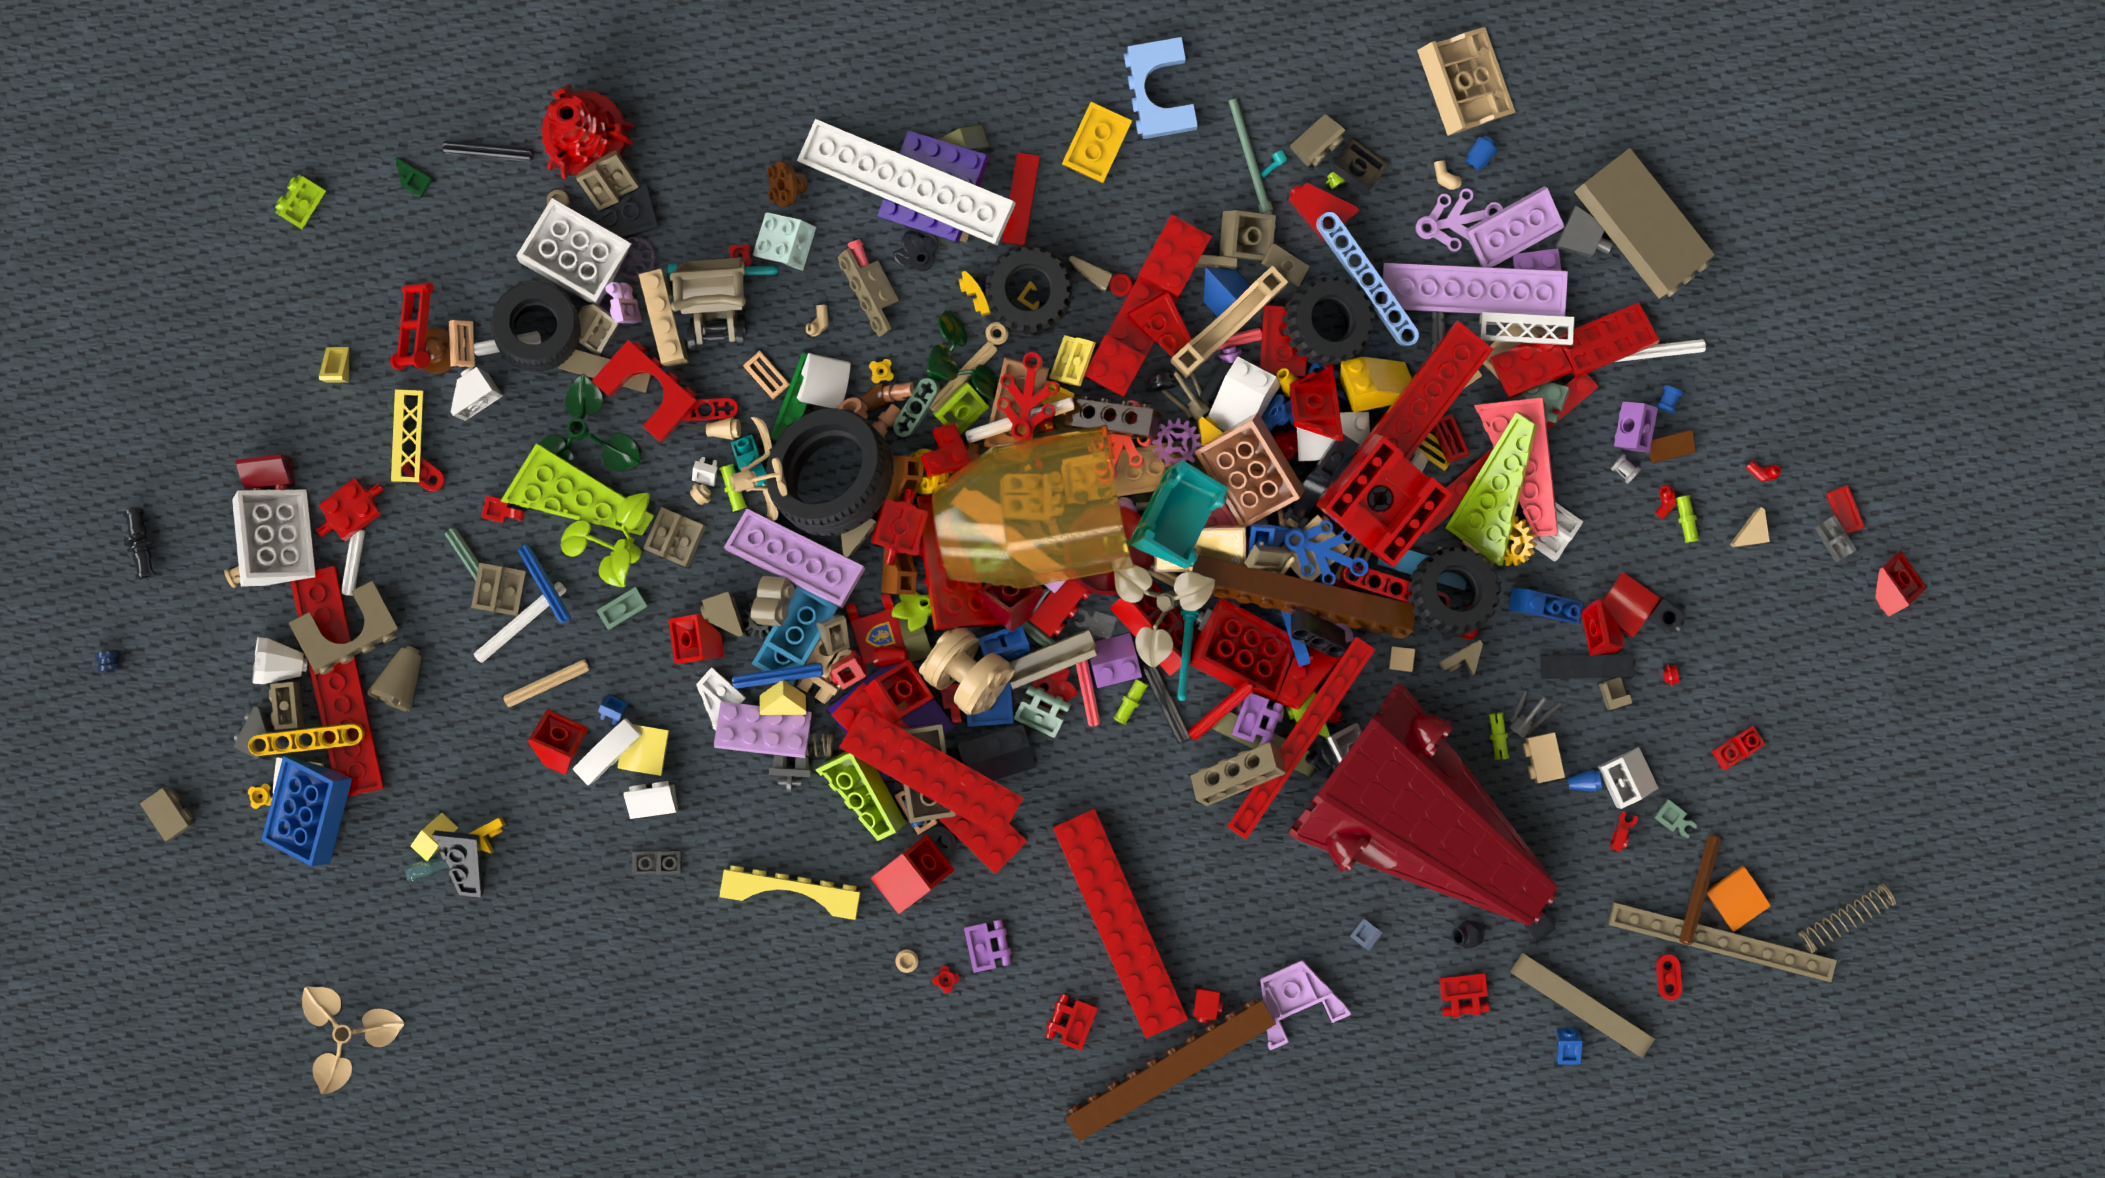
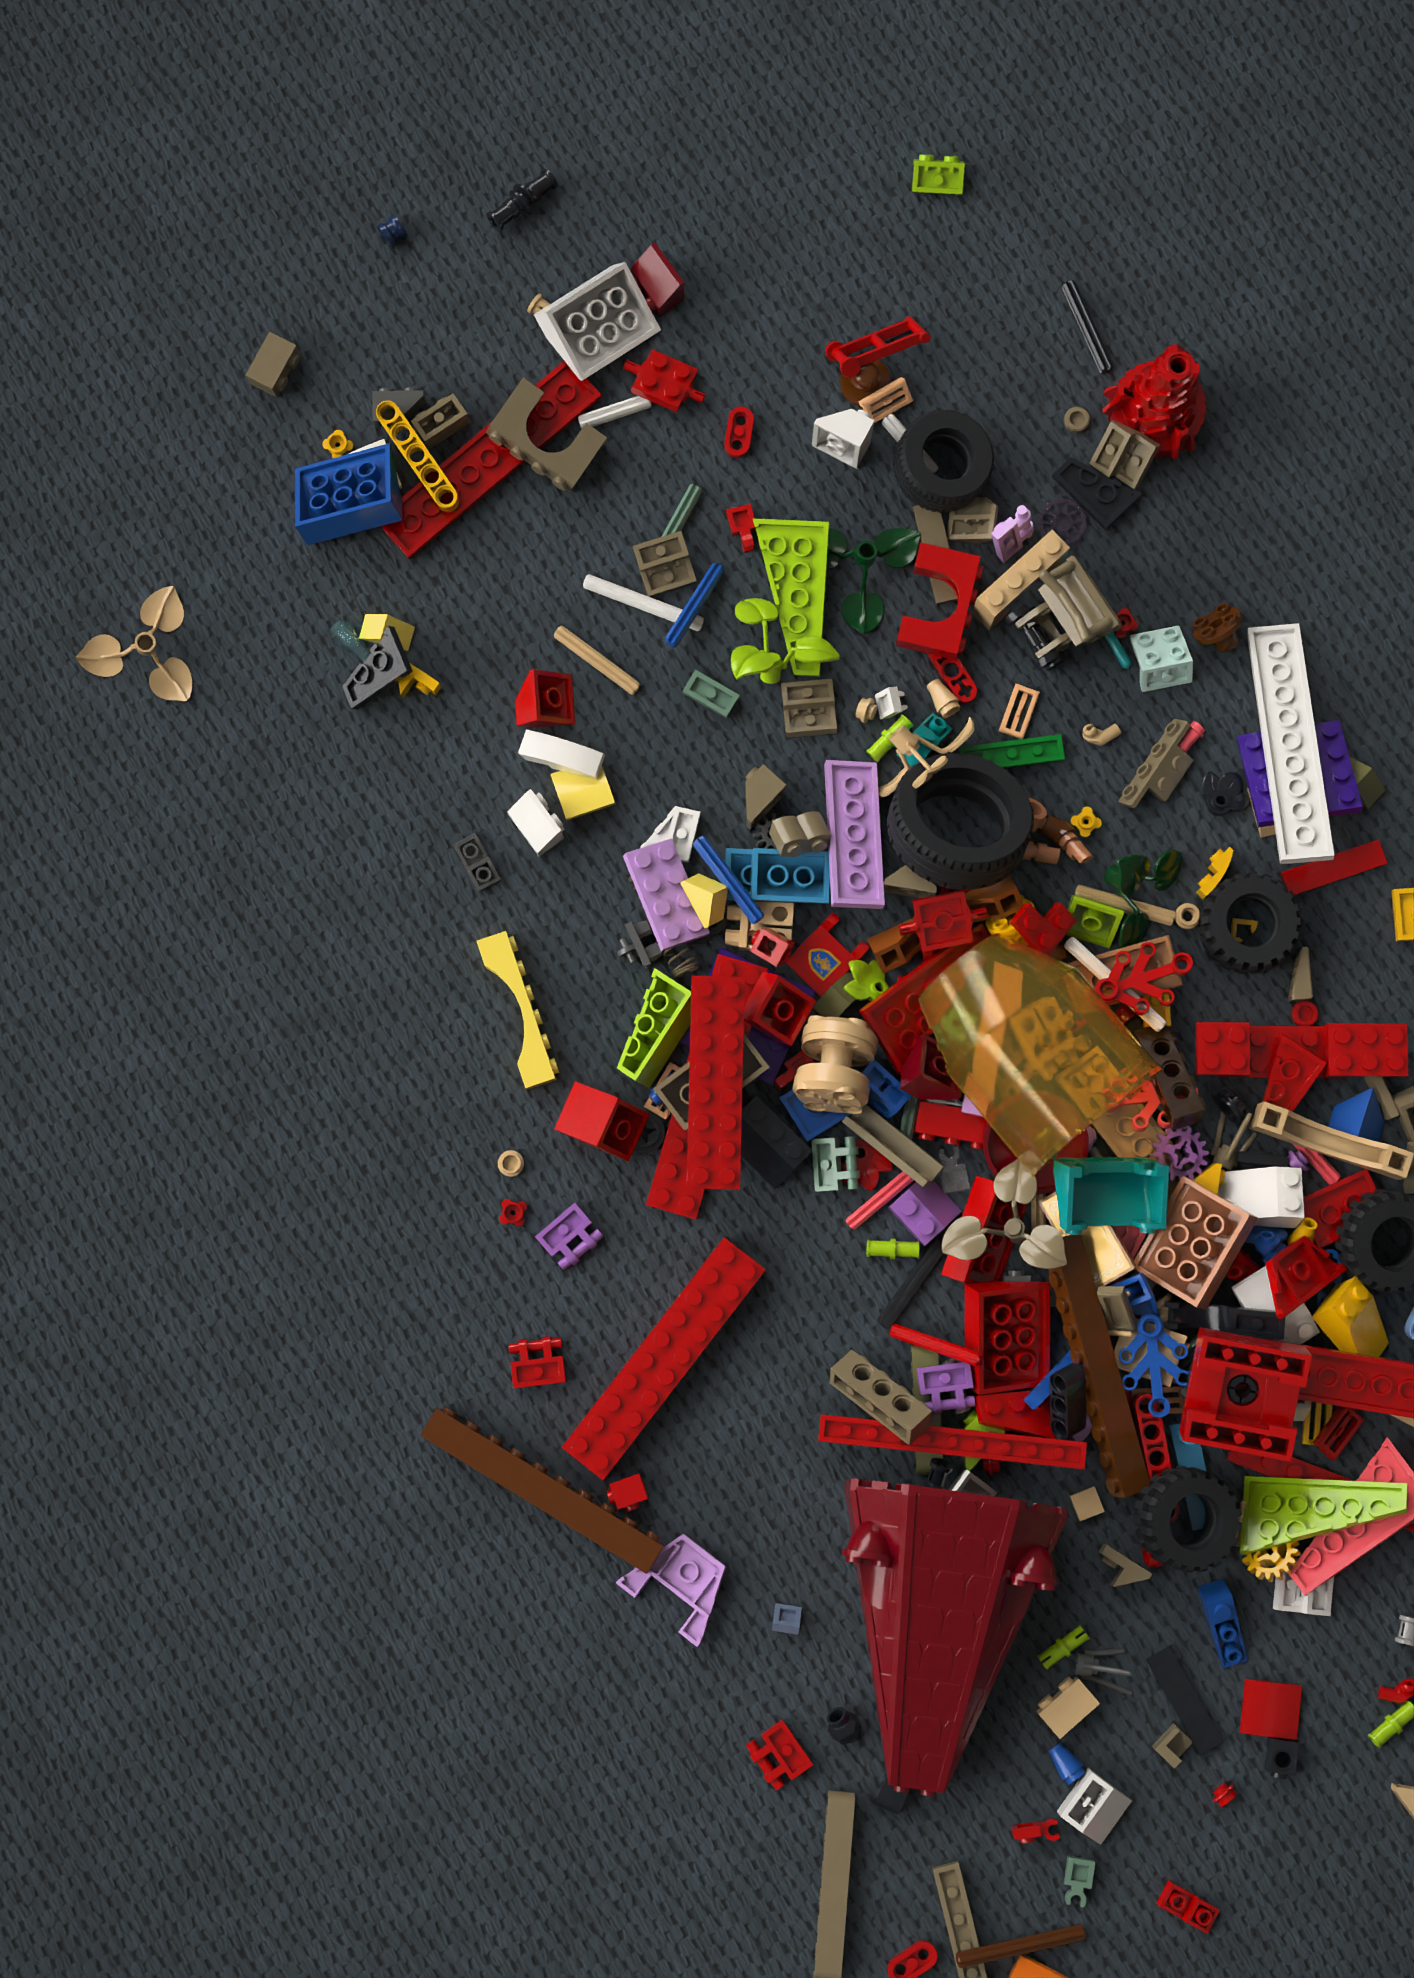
camera: 65 degrees right, 5 degrees down
(276, 662) = (477, 389): white cone -> none
(335, 365) = (796, 293): light yellow slope -> none
(398, 436) = (761, 389): light yellow fence -> none
(398, 680) = (523, 515): dark tan cone -> none
(412, 178) = (1020, 270): dark green tile -> none
(573, 252) = (1036, 459): white slope -> none
(612, 708) = (607, 737): blue tile -> none
(694, 639) = (719, 781): red slope -> none
(824, 381) = (1045, 769): white slope -> none
(834, 634) = (800, 913): dark tan slope -> none
(888, 656) = (806, 980): red cone -> none
(913, 424) = (1089, 868): sand green beam -> none
(1072, 360) = (1203, 1004): light yellow slope -> none
(1189, 617) = (1012, 1261): teal piece -> none
(1569, 1046) = (784, 1895): blue bracket -> none
(1601, 630) = (1231, 1695): red slope -> none

